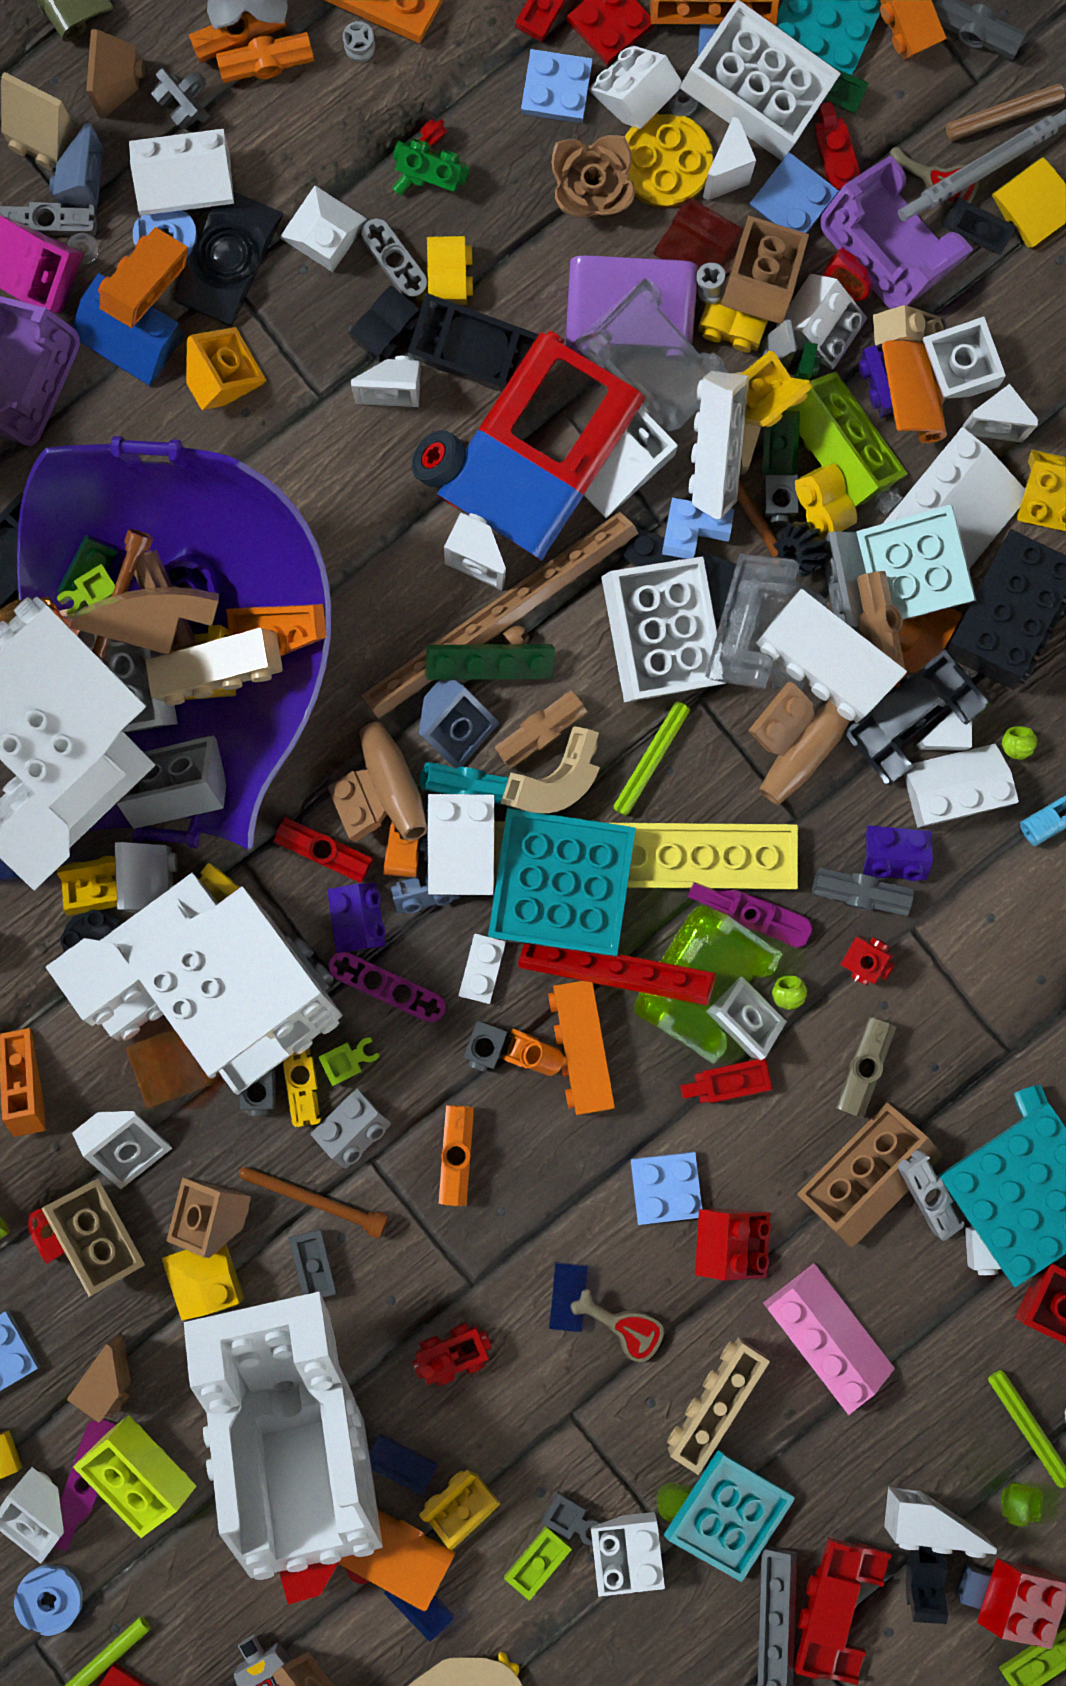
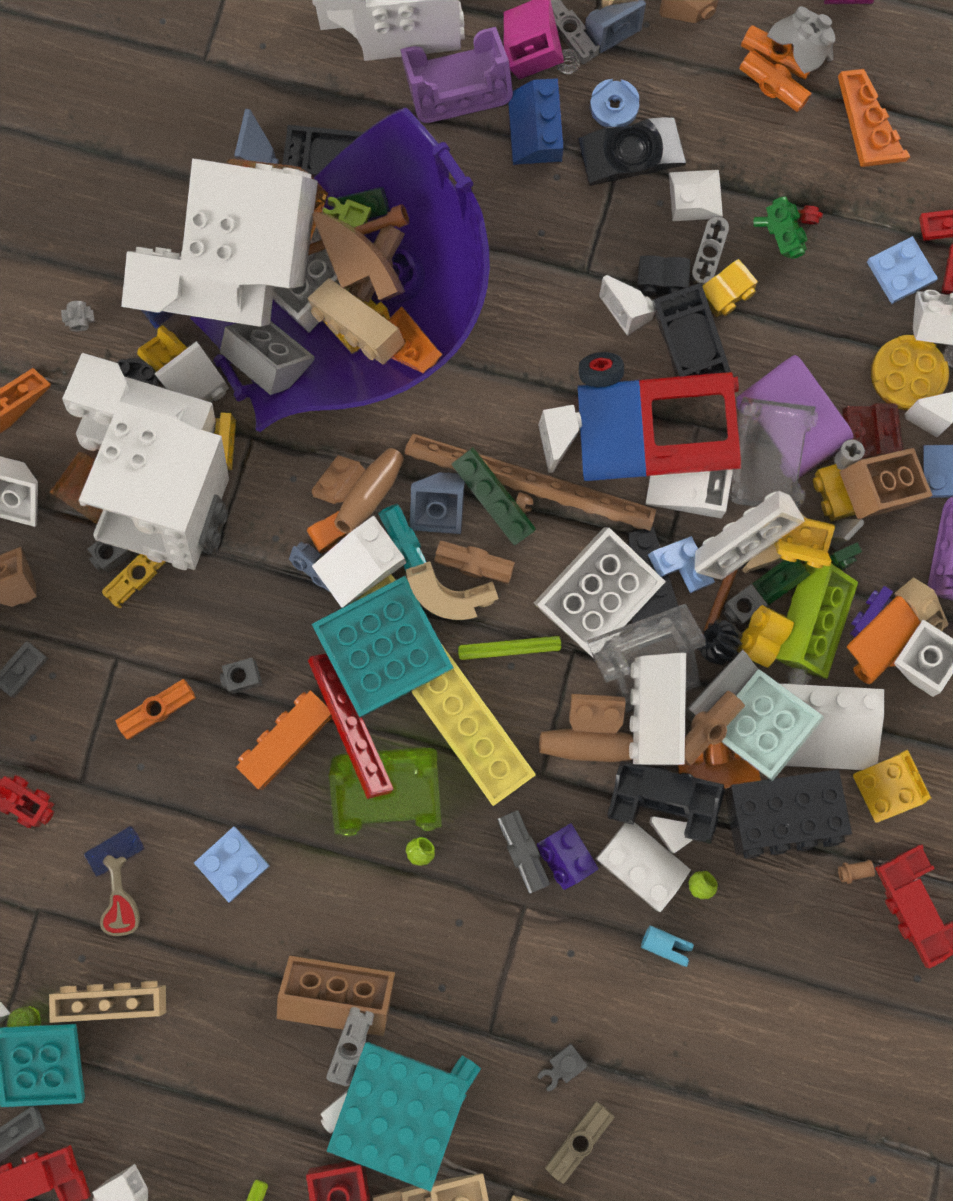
camera: 60 degrees right, 5 degrees down
(142, 277) = (574, 104): orange brick -> none
(181, 172) = (661, 82): white slope -> none
(184, 92) = (713, 50): dark grey hips -> none
(220, 368) = (556, 195): light orange slope -> none
(305, 840) = (292, 466): red piece -> none
(344, 1062) = (167, 593): lime plate -> none
(350, 1129) = (125, 630): light grey bracket -> none
(356, 917) = (266, 534): dark purple bracket -> none
(359, 33) = (836, 125): light grey wheel -> none
(372, 1222) = (74, 687): dark orange piece -> none
(385, 991) = (238, 585): magenta beam -> none
(482, 968) = (290, 638): white plate -> none
(533, 1054) = (256, 710): orange piece -> none
(605, 159) = (860, 316): medium nougat brick -> none
(729, 1081) = (332, 854): red hinge -> none
(732, 1244) = (224, 935): red slope -> none
(748, 1018) = (383, 836): white slope -> none
(769, 920) = (459, 803): magenta piece -> none
(825, 316) = (885, 548): white slope -> none
(830, 1338) = (206, 1048): bright pink slope -> none
(850, 274) = (925, 543): red rock -> none
(856, 960) = (479, 888): red brick -> none
(874, 1046) = (389, 944): dark tan piece -> none
(1002, 418) = (910, 710): white slope -> none

